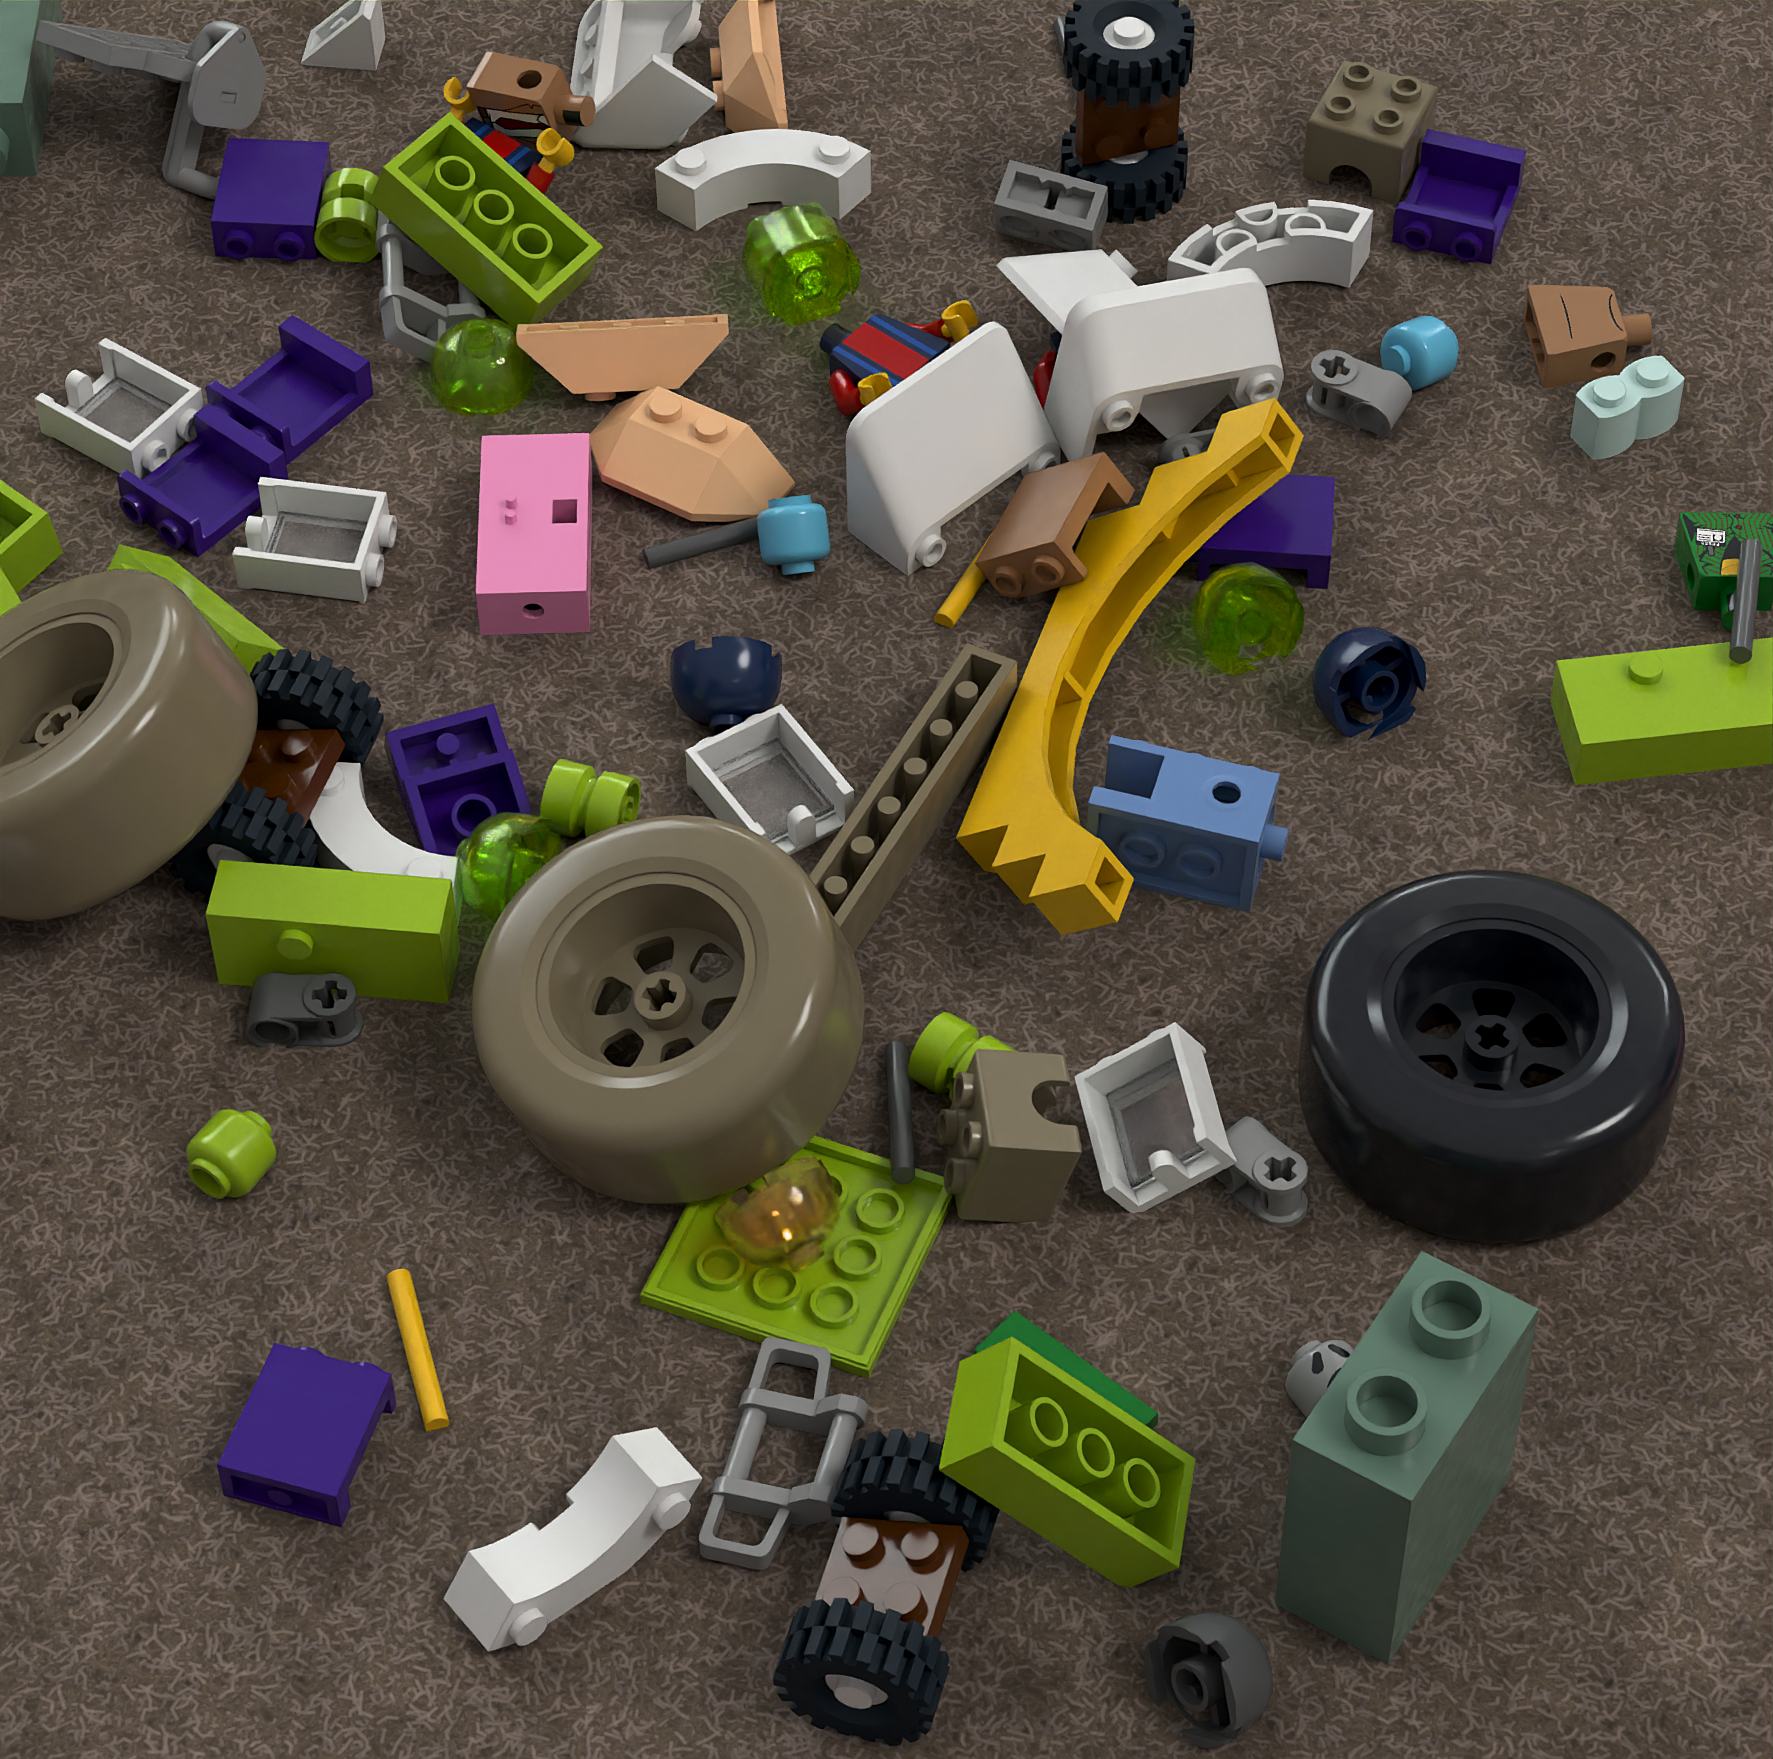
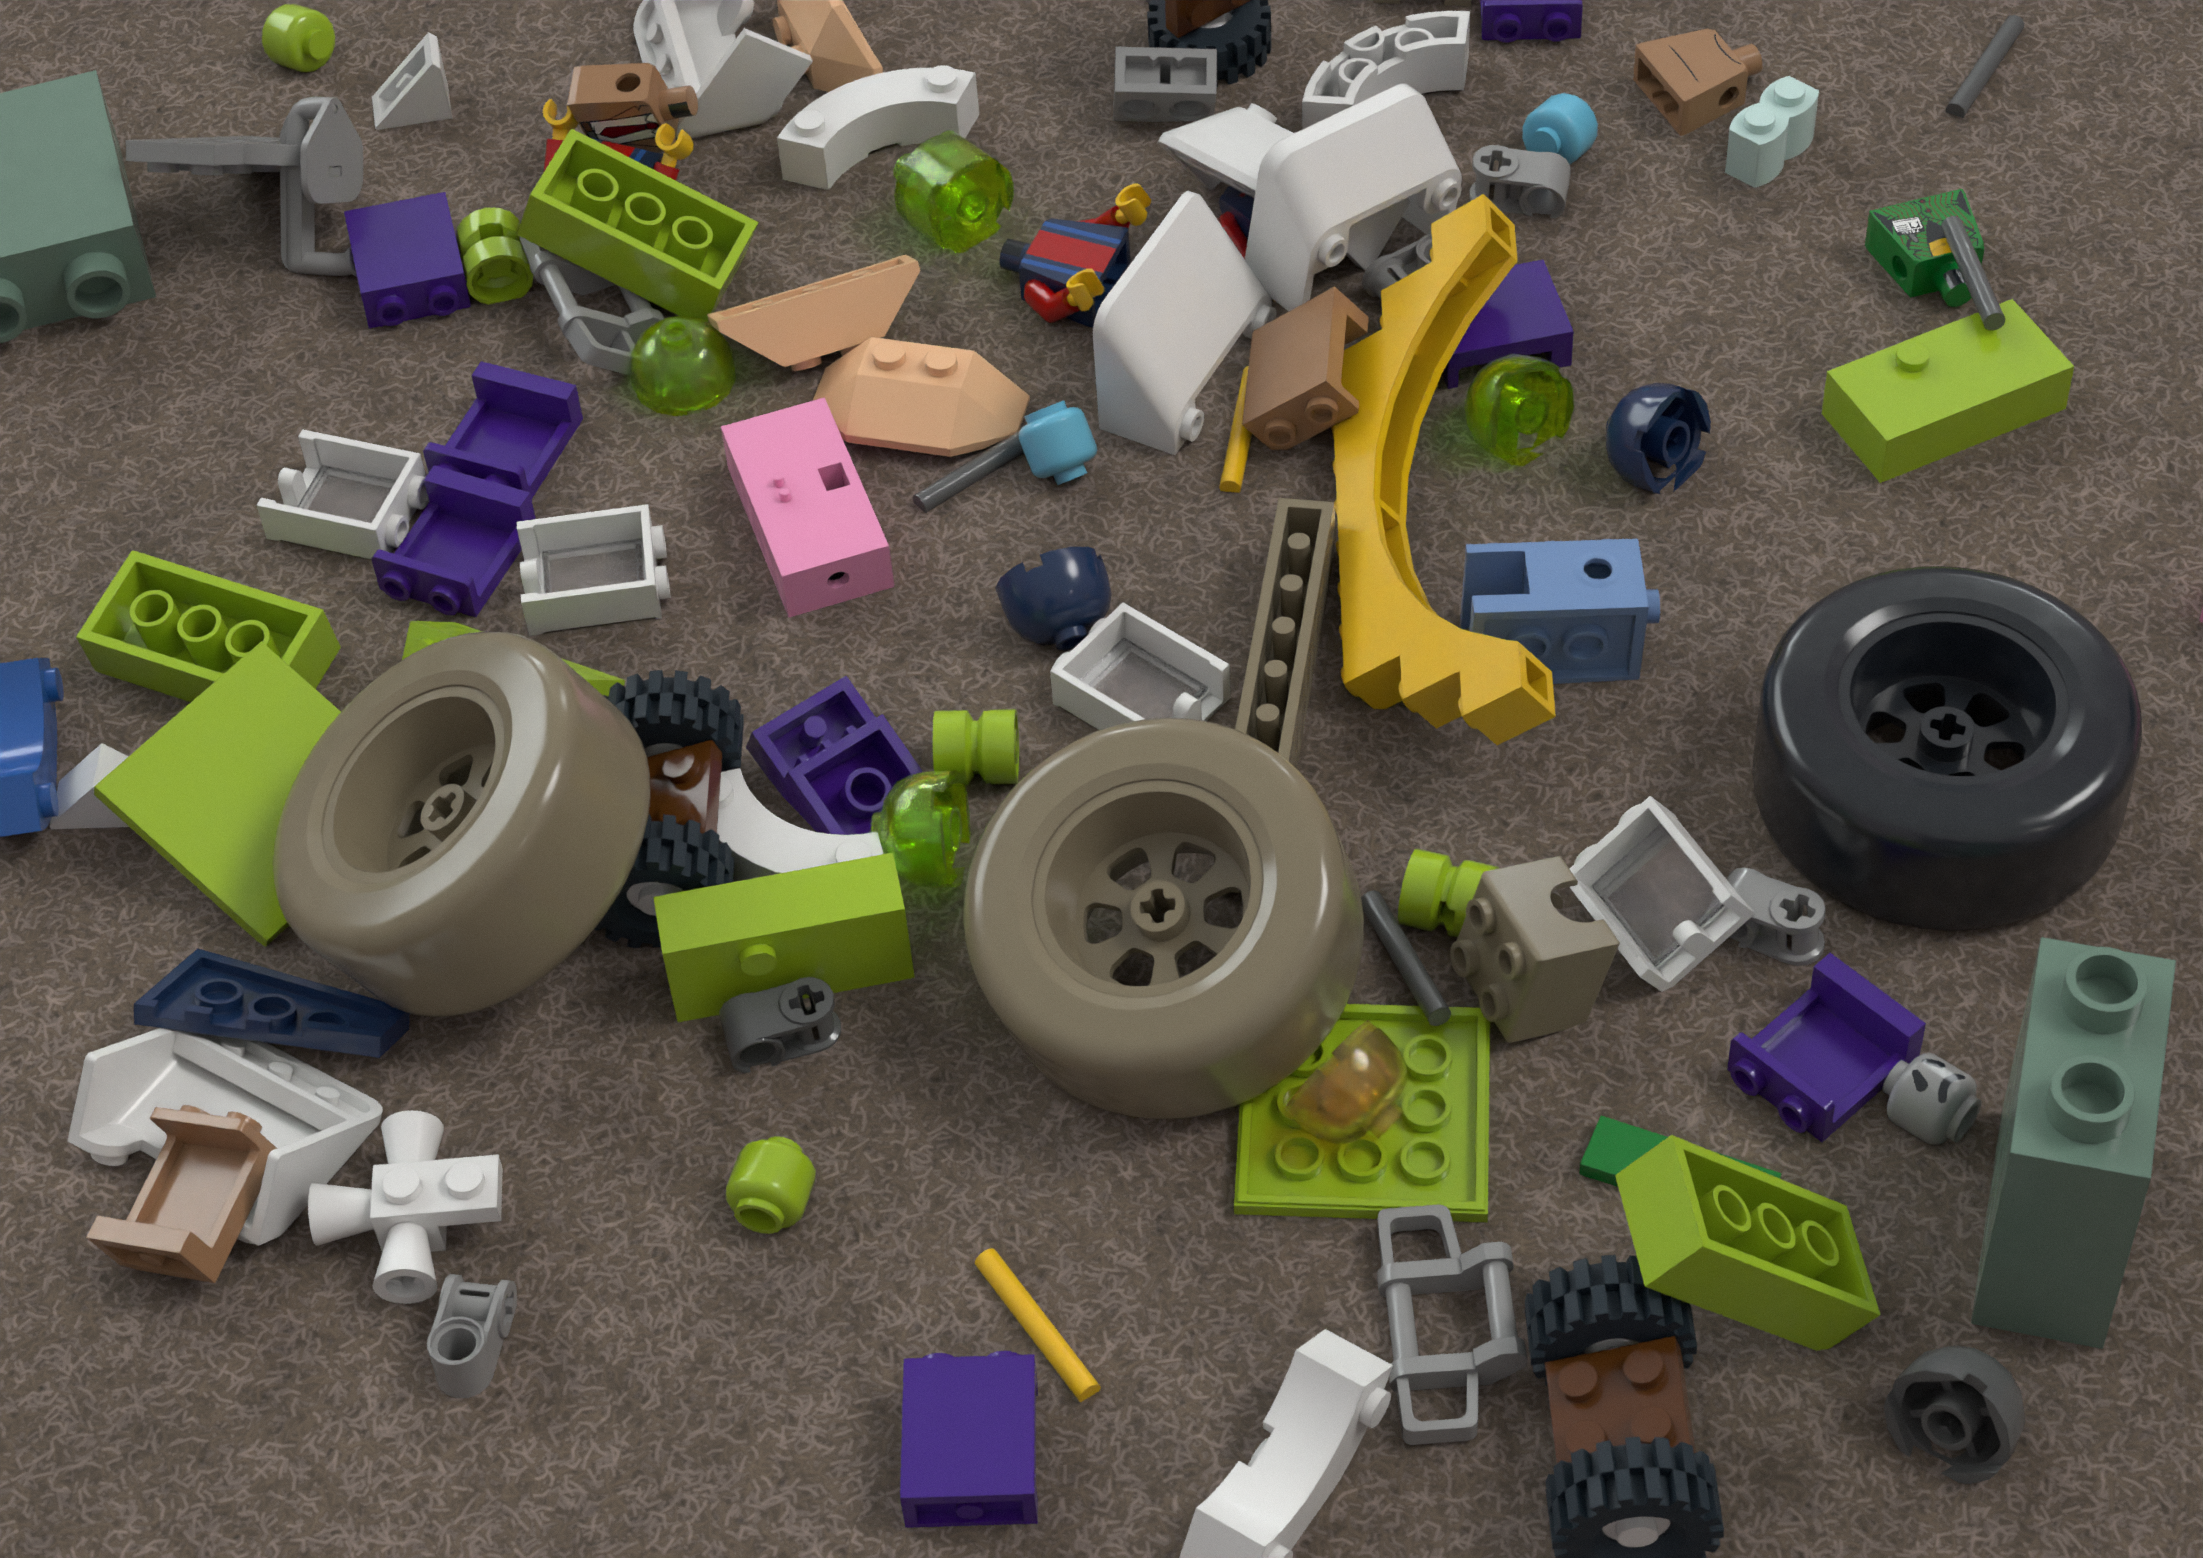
camera: 15 degrees left, 0 degrees up
(1252, 1312) = (1826, 1050): none -> dark purple panel

